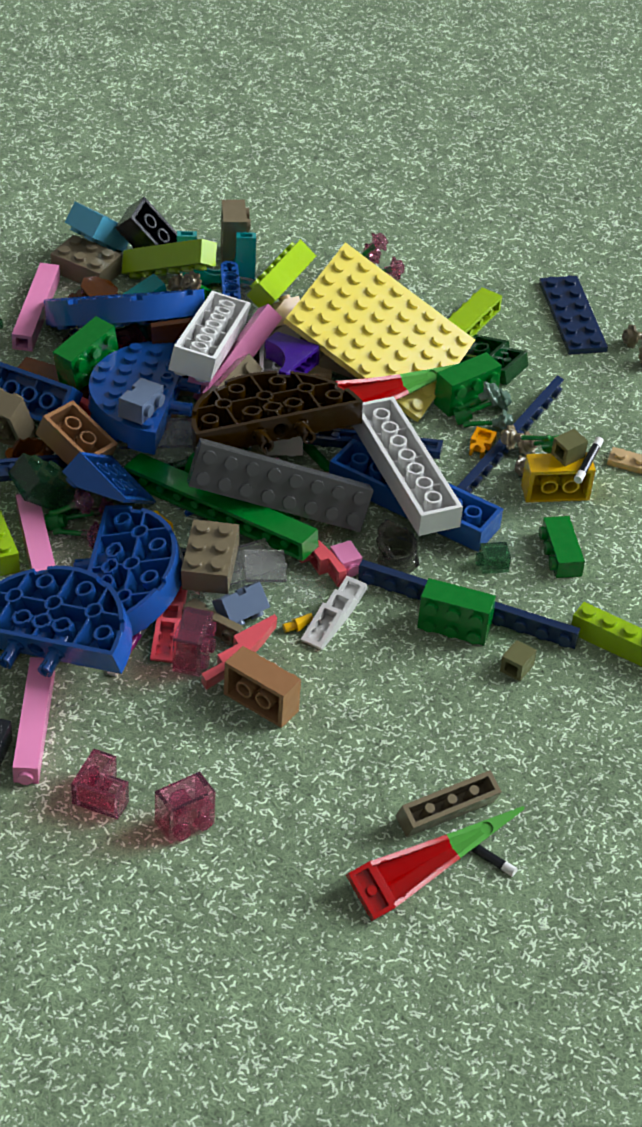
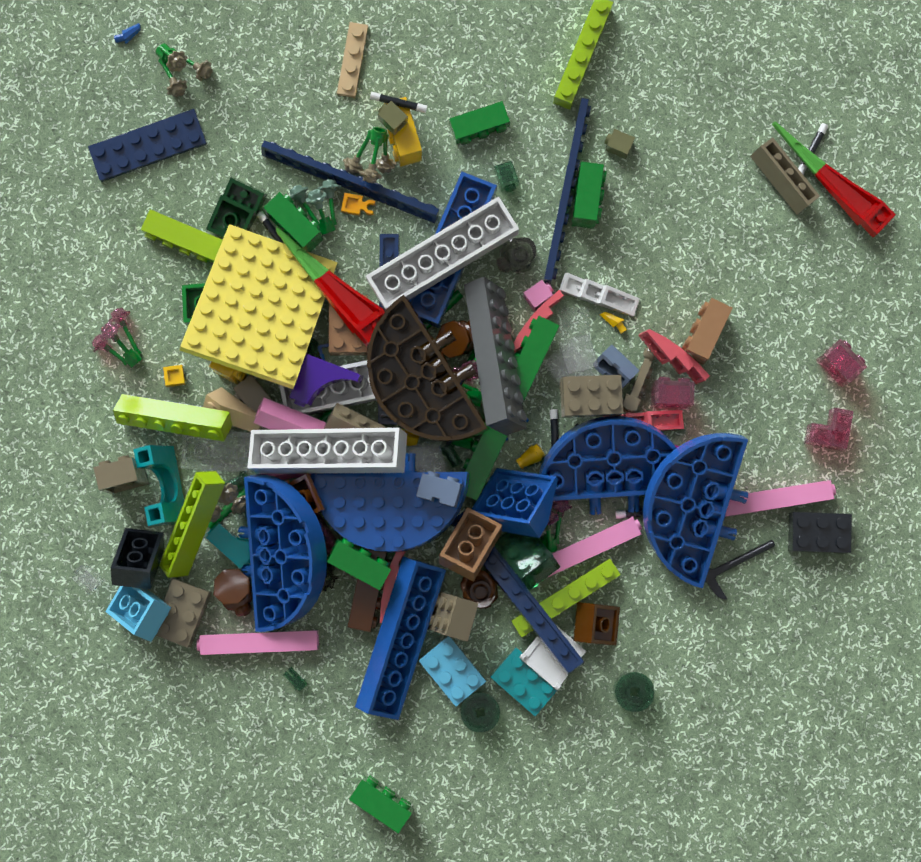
camera: 95 degrees left, 40 degrees up
(230, 279) = (206, 459): blue beam -> none

